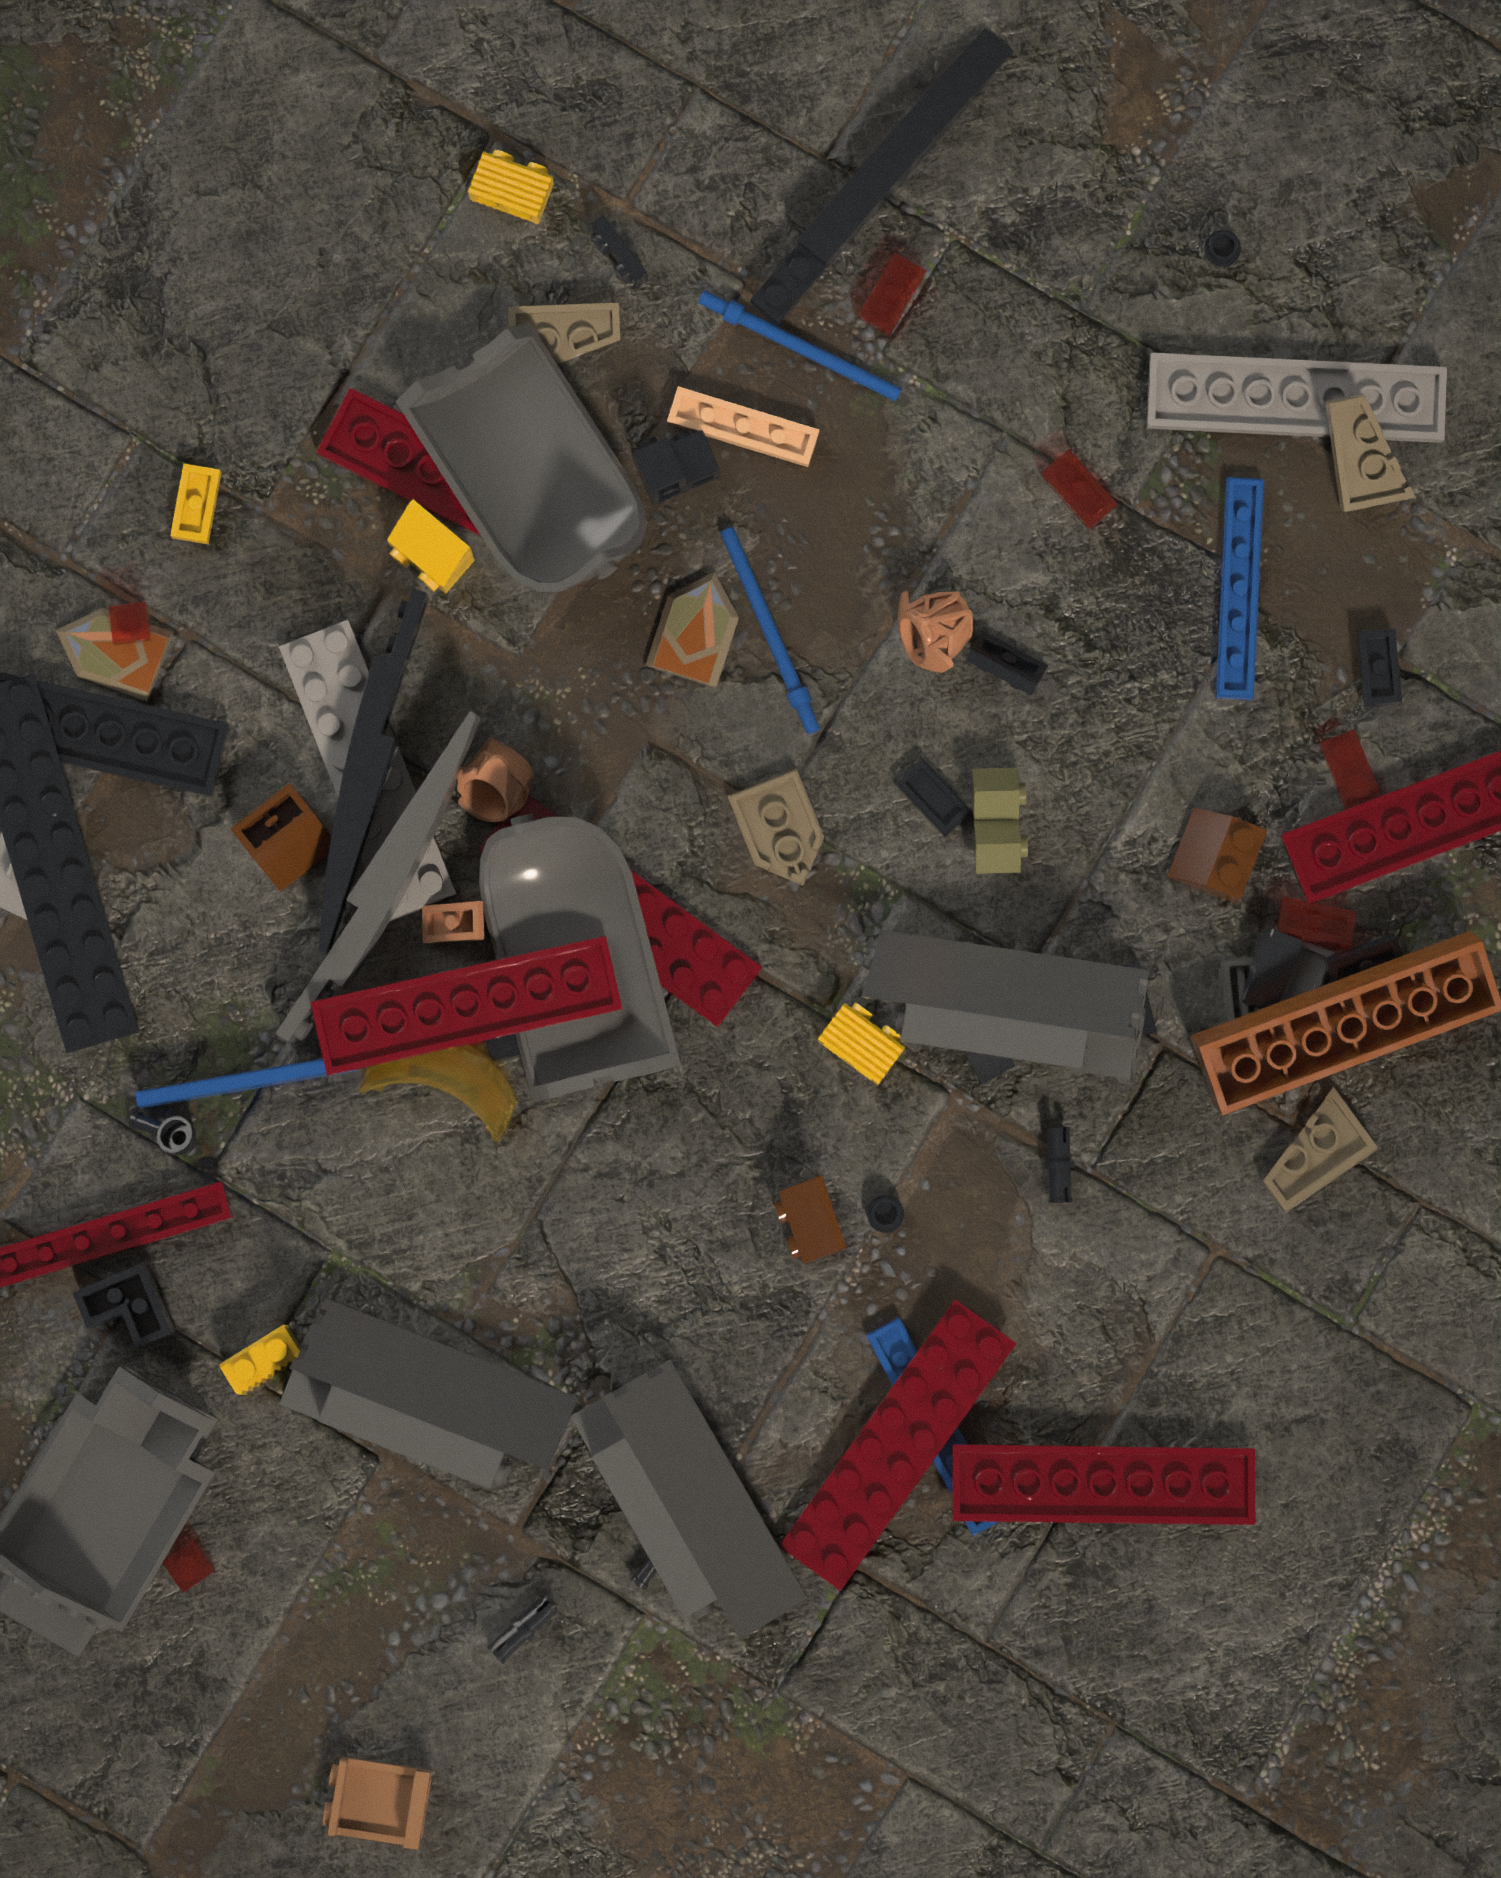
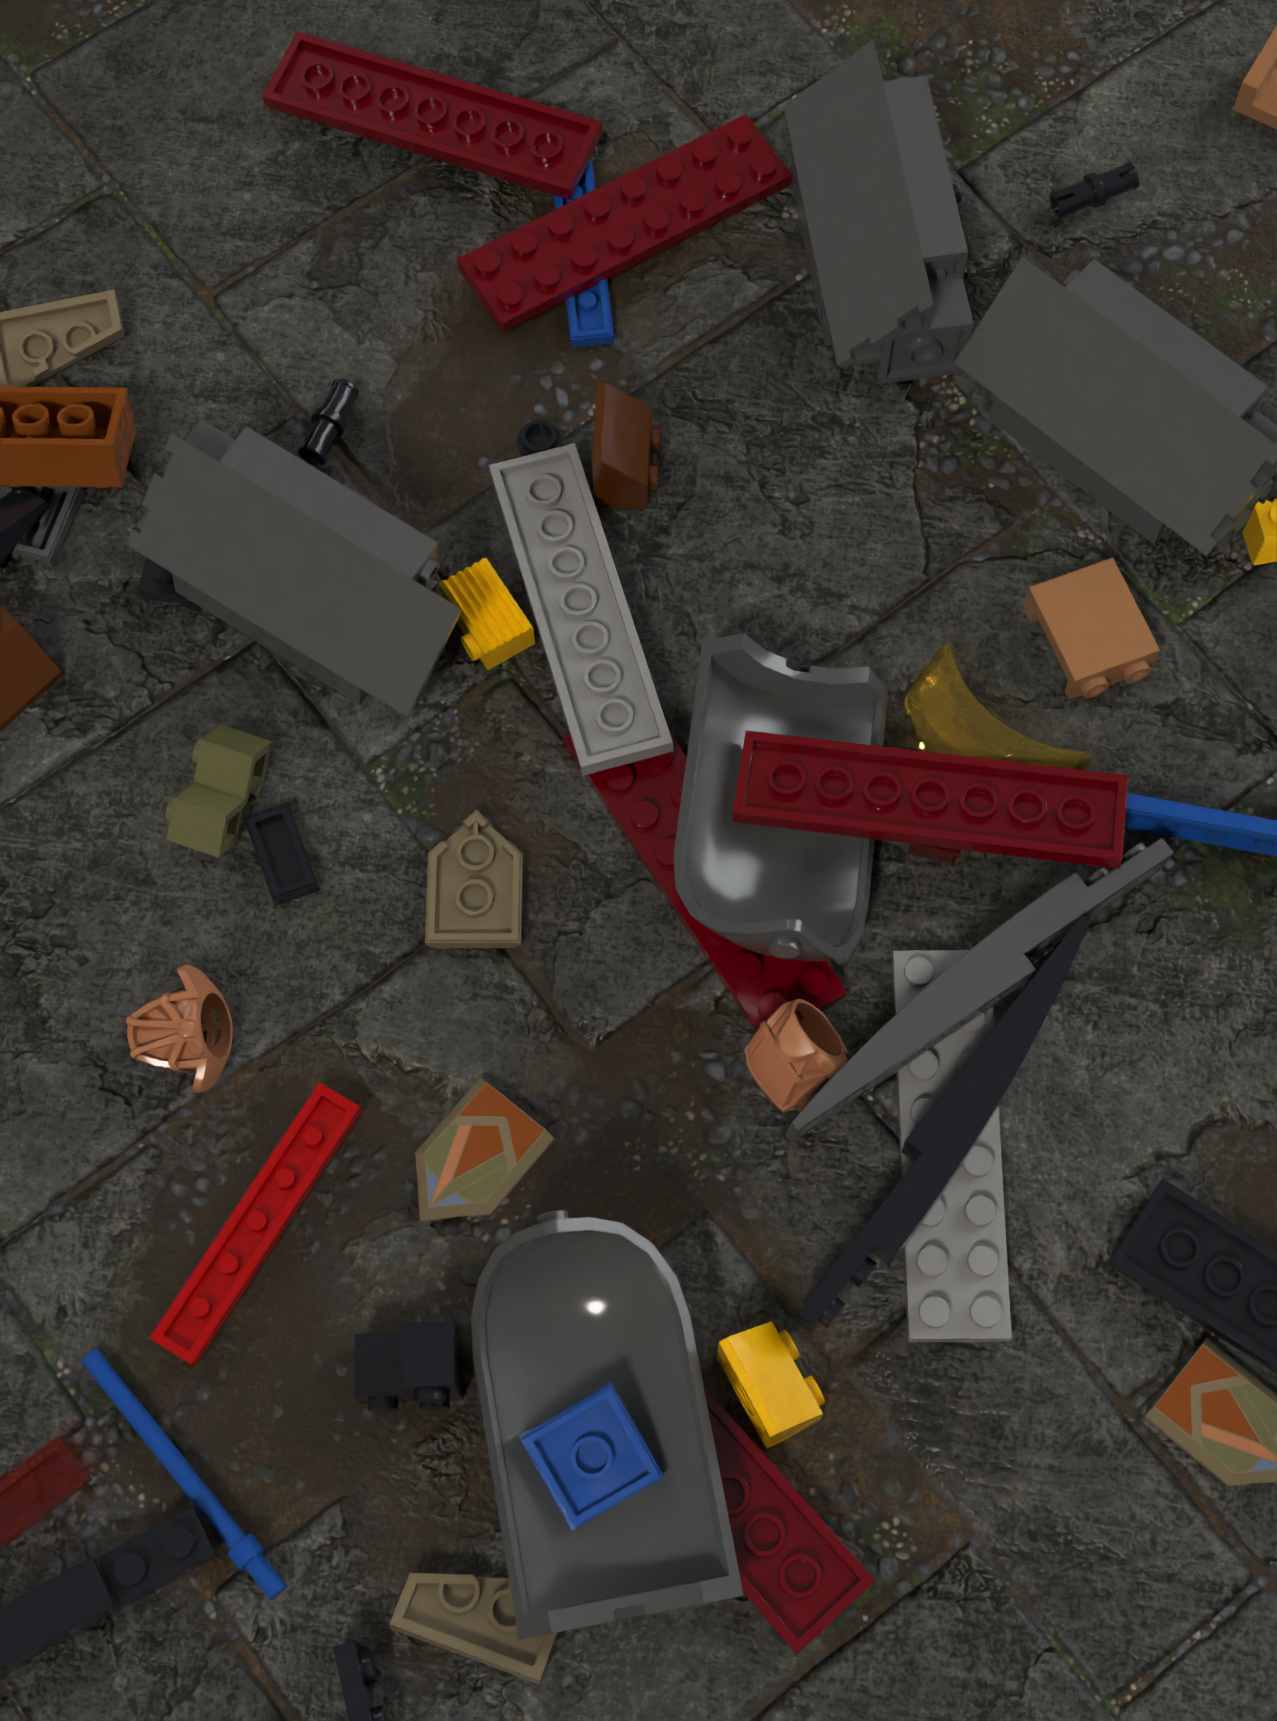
camera: 160 degrees left, 15 degrees down
(130, 623) = (1202, 1439): clear red plate -> none
(196, 504) = (1061, 1576): yellow plate -> none
(284, 837) = (1085, 1092): reddish brown slope -> none
(394, 1209) = (1093, 628): none -> medium nougat panel
(453, 922) = (907, 910): nougat slope -> none
(528, 451) = (591, 1455): none -> blue tile
(743, 426) = (303, 1390): light nougat plate -> none
(792, 1074) = (580, 610): none -> light grey plate
(798, 696) = (384, 1027): blue bar -> none
(824, 524) = (256, 1225): none -> red plate
(1006, 663) = (118, 965): black plate -> none

